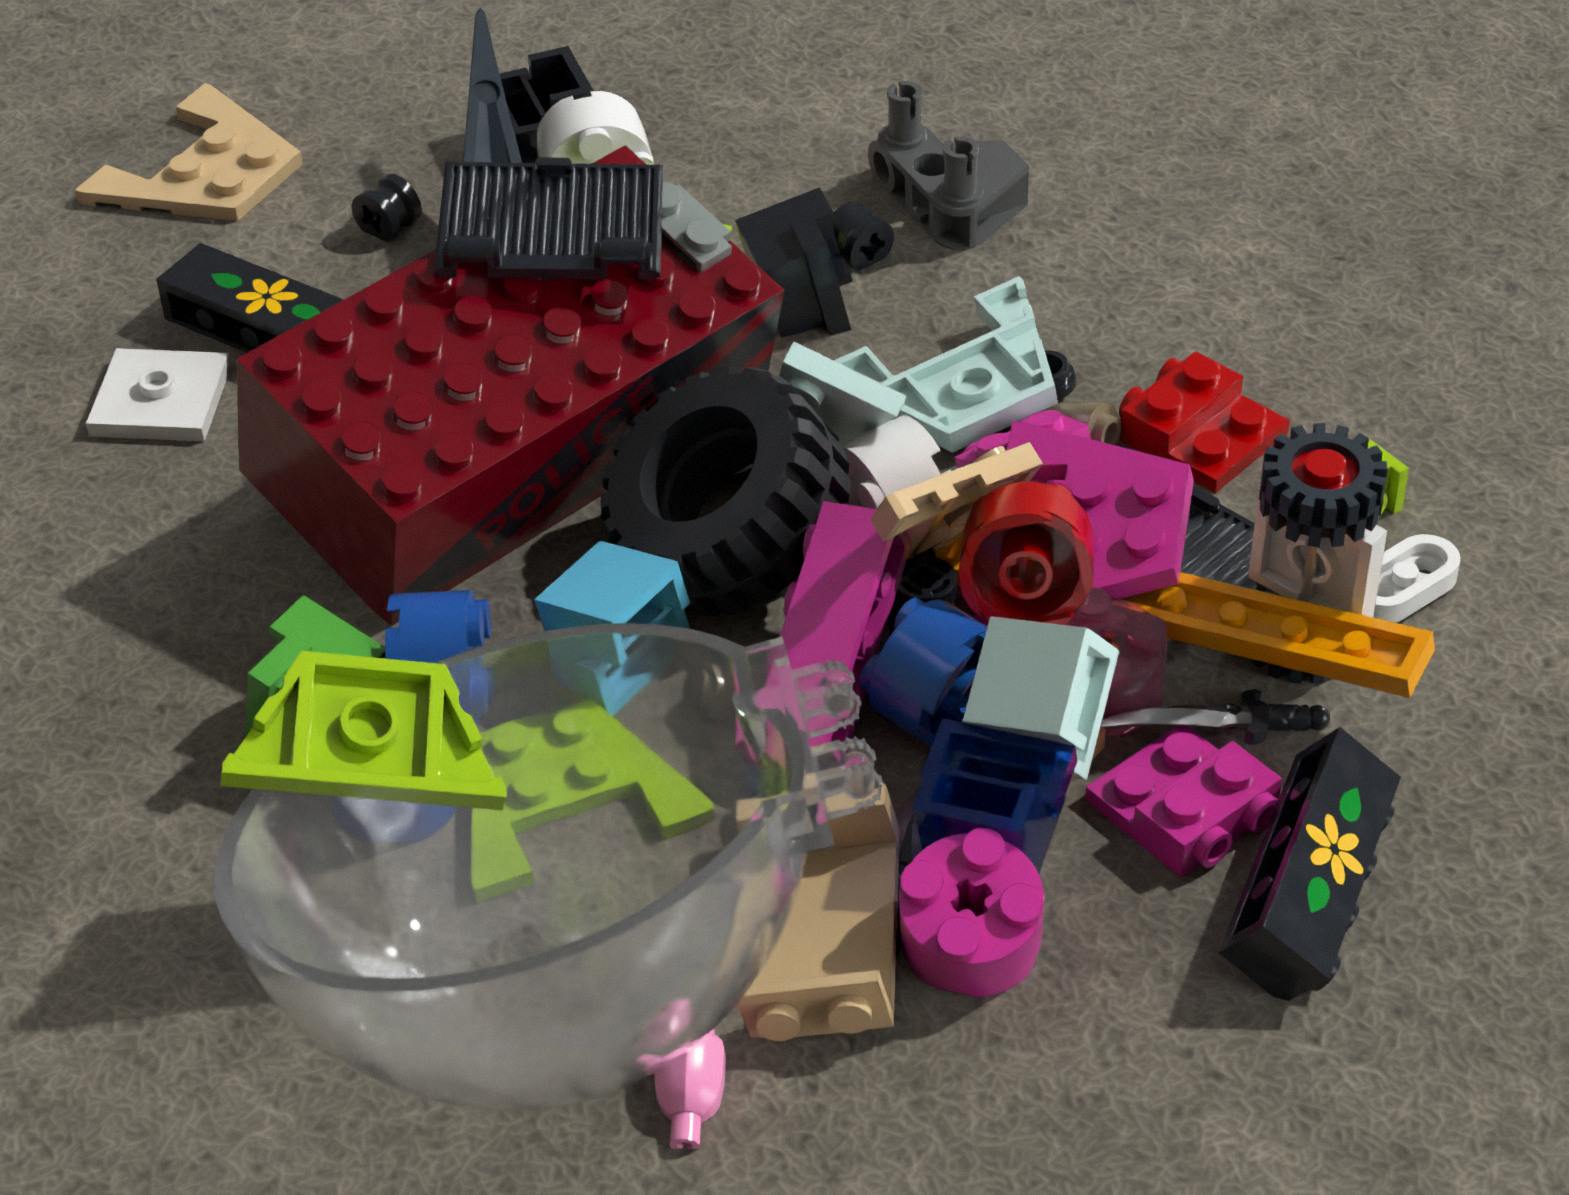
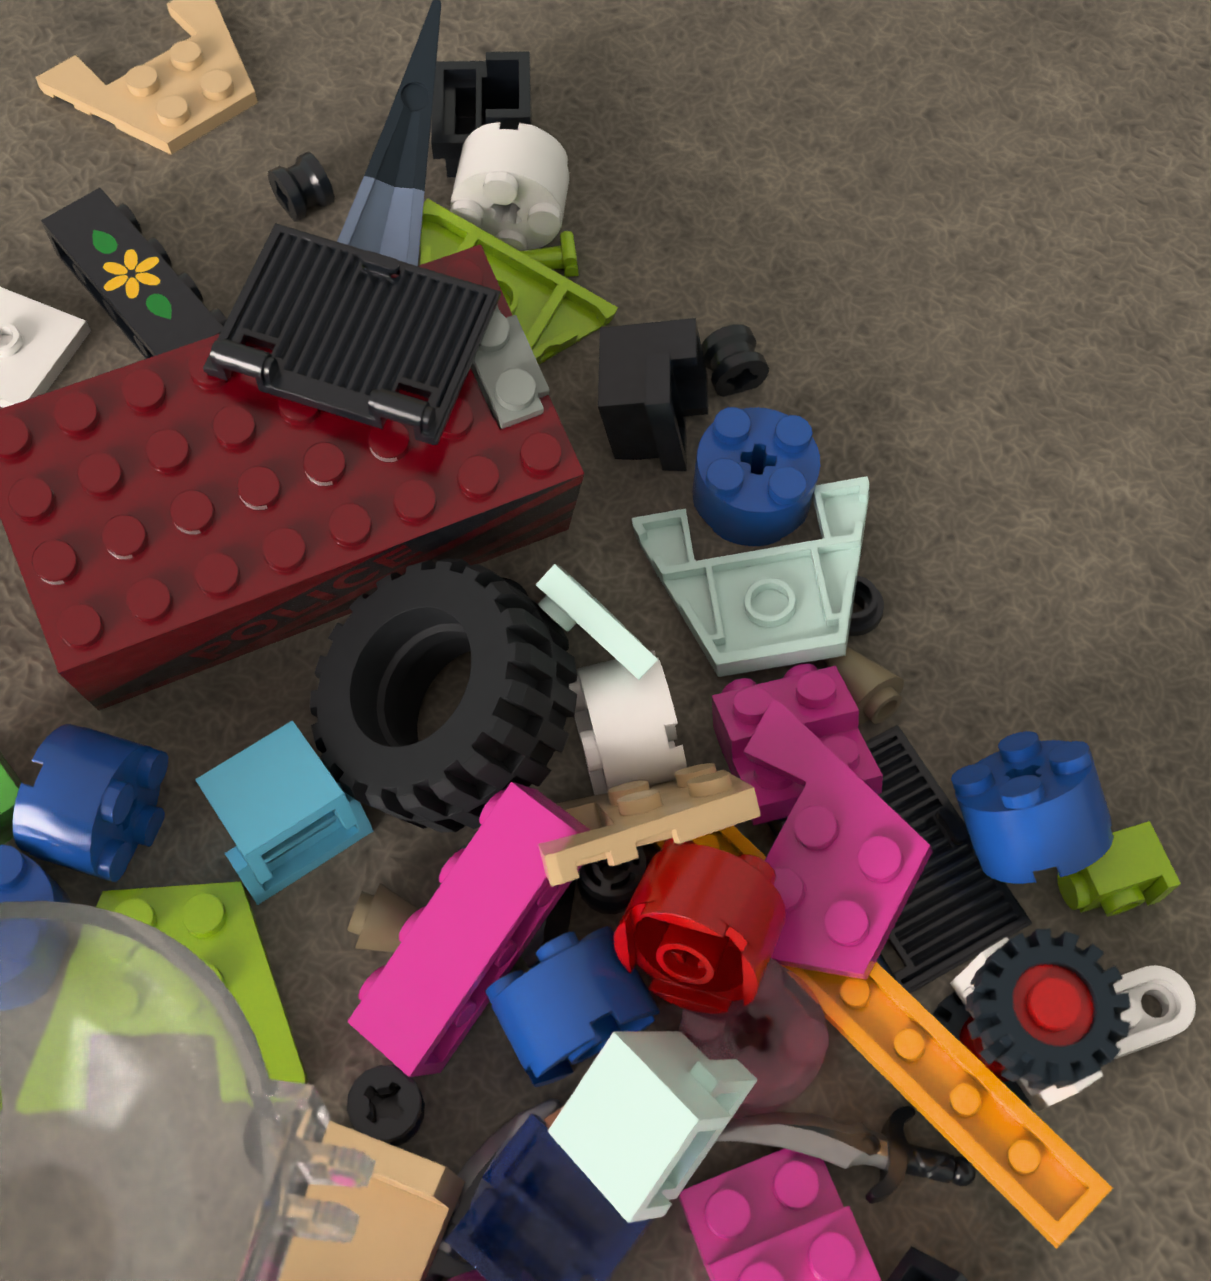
camera: 15 degrees right, 20 degrees up
(917, 302) = (755, 475): none -> blue brick
(950, 189) = (850, 326): dark grey piece -> none
(1199, 420) = (979, 702): red plate -> none
(1236, 452) = (1034, 808): none -> blue brick

